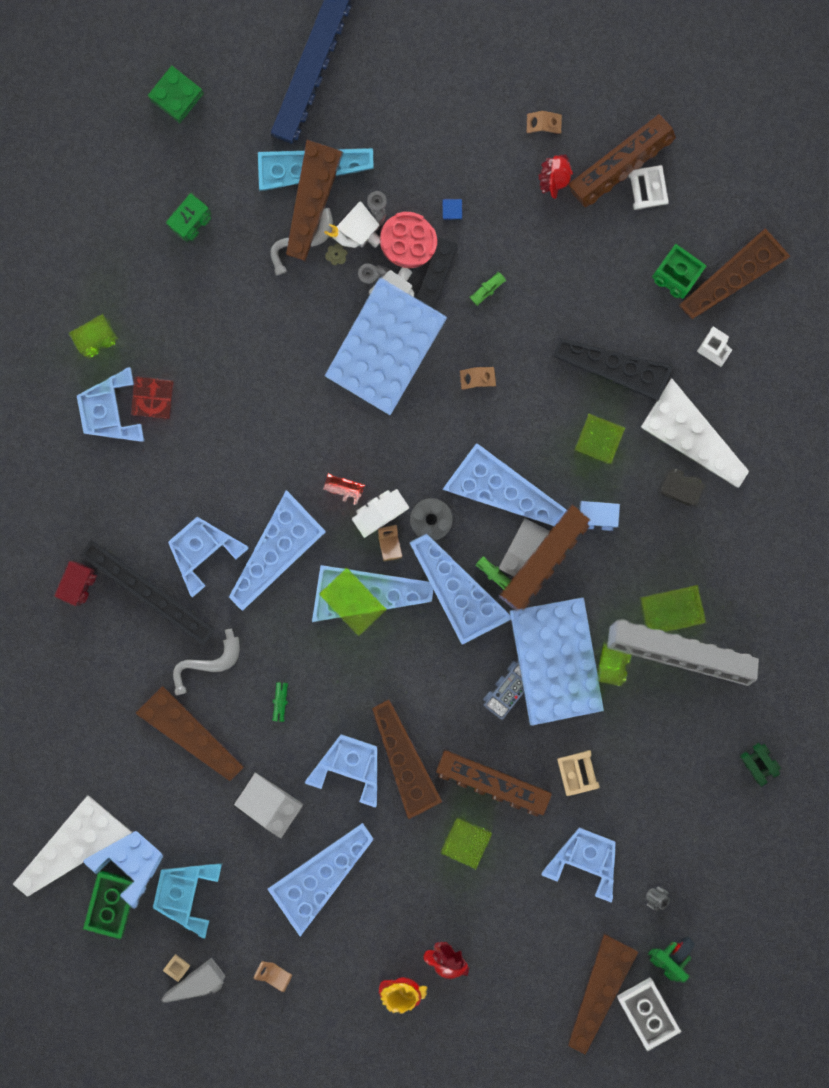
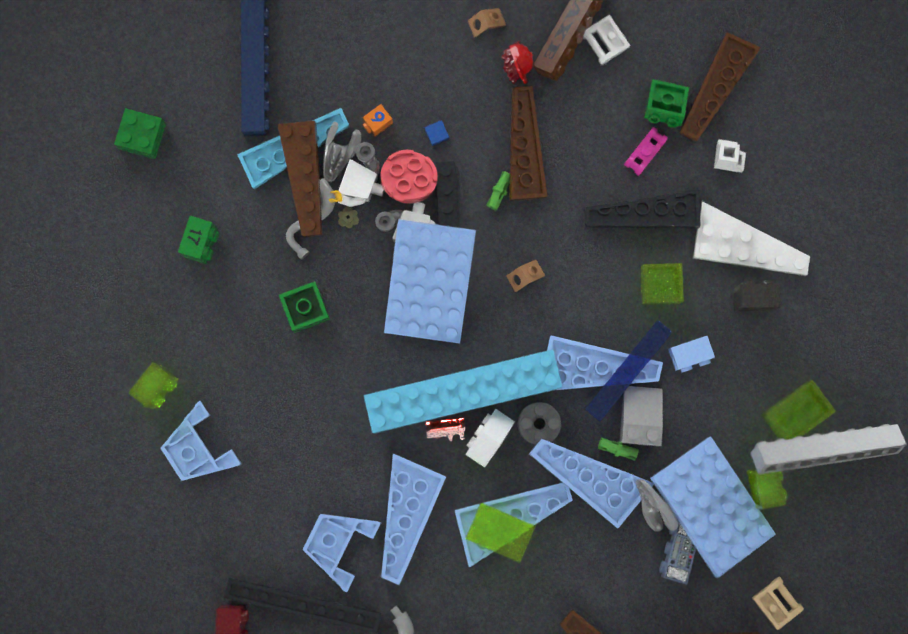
camera: 25 degrees left, 5 degrees down
(152, 397) = (232, 420): clear red tile -> none
(261, 321) = (304, 307): none -> green brick
(350, 192) = (336, 155): none -> light grey animal
(373, 460) = (463, 391): none -> medium azure brick
(389, 543) = (510, 462): medium nougat bracket -> none
(401, 174) = (377, 120): none -> orange brick
(502, 641) = (652, 504): none -> light grey animal
(524, 270) = (526, 161): none -> reddish brown wing
(534, 505) = (628, 370): none -> clear blue tile
(544, 558) = (662, 414): reddish brown brick -> none
(640, 309) = (645, 151): none -> dark pink plate

